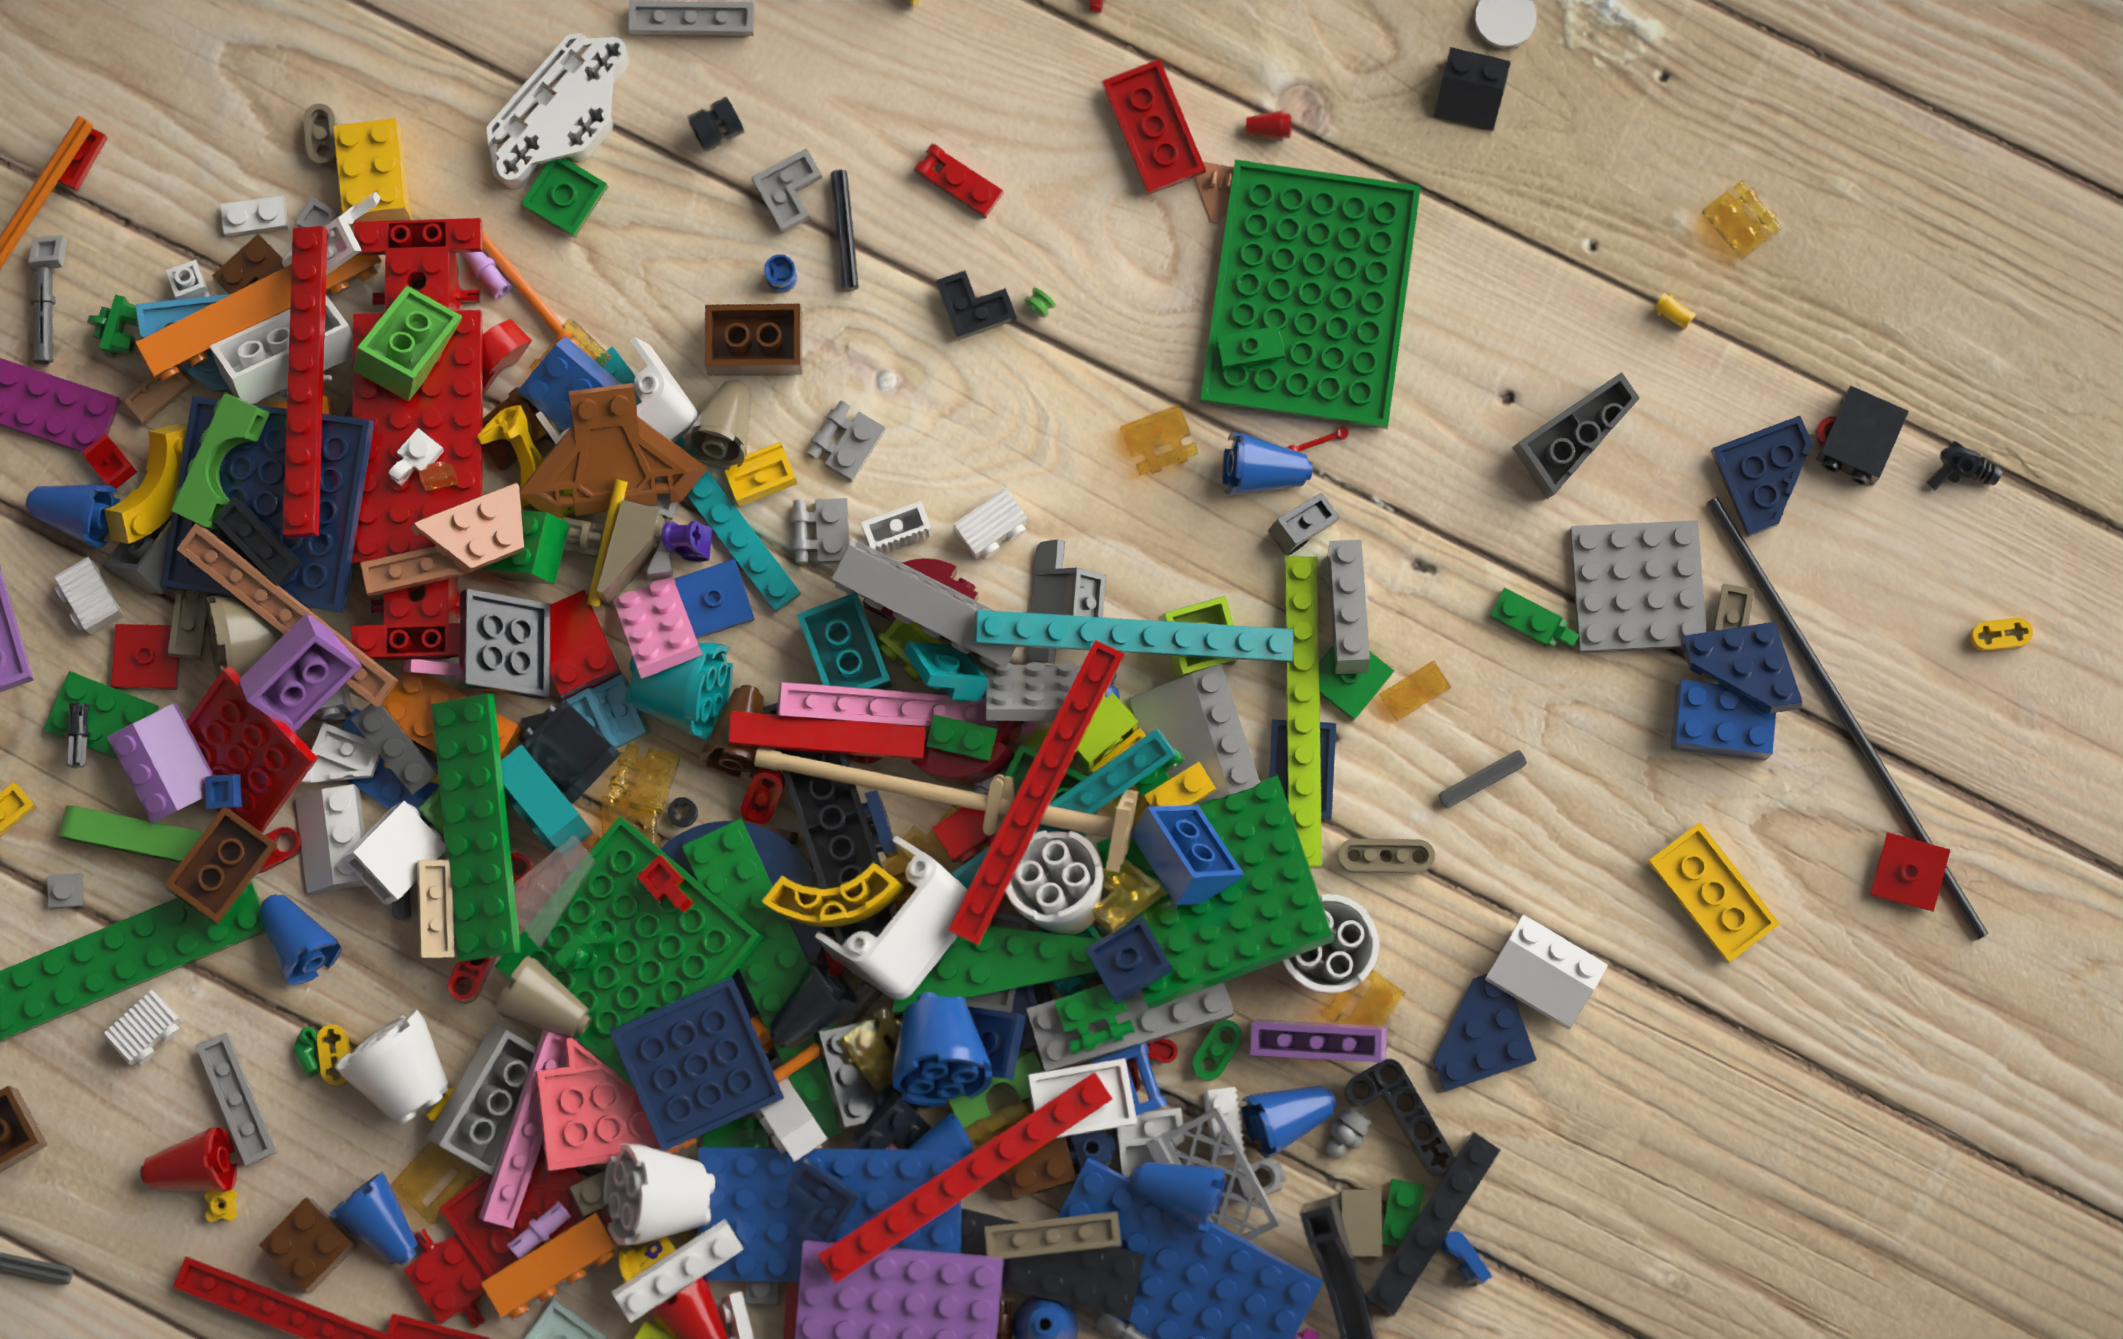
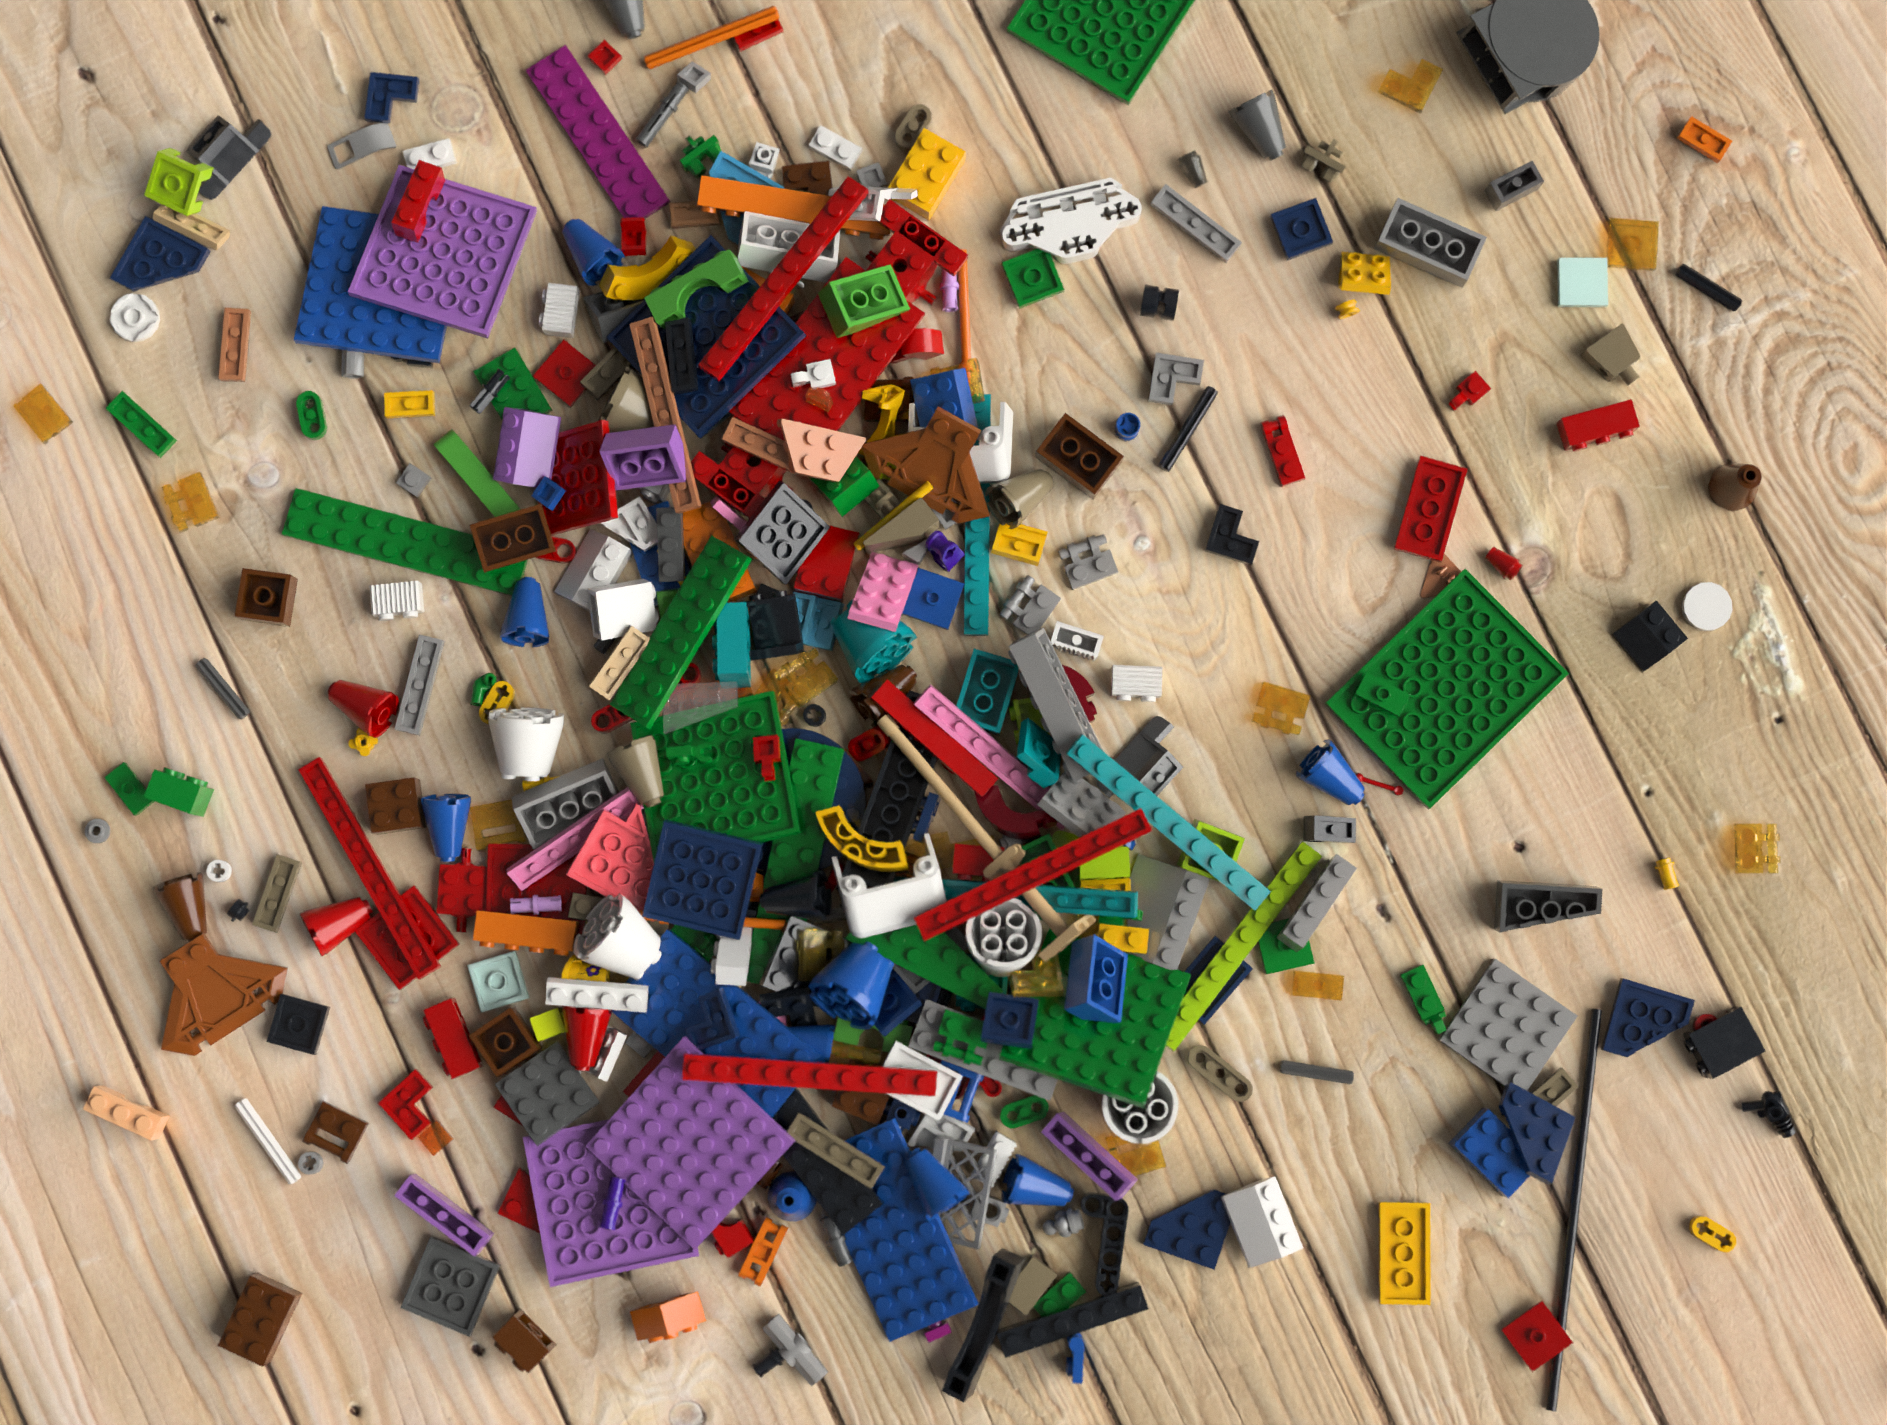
camera: 40 degrees right, 5 degrees up
(961, 737) = (1015, 802): green plate -> none
(1039, 302) = (1273, 566): bright green bush -> none

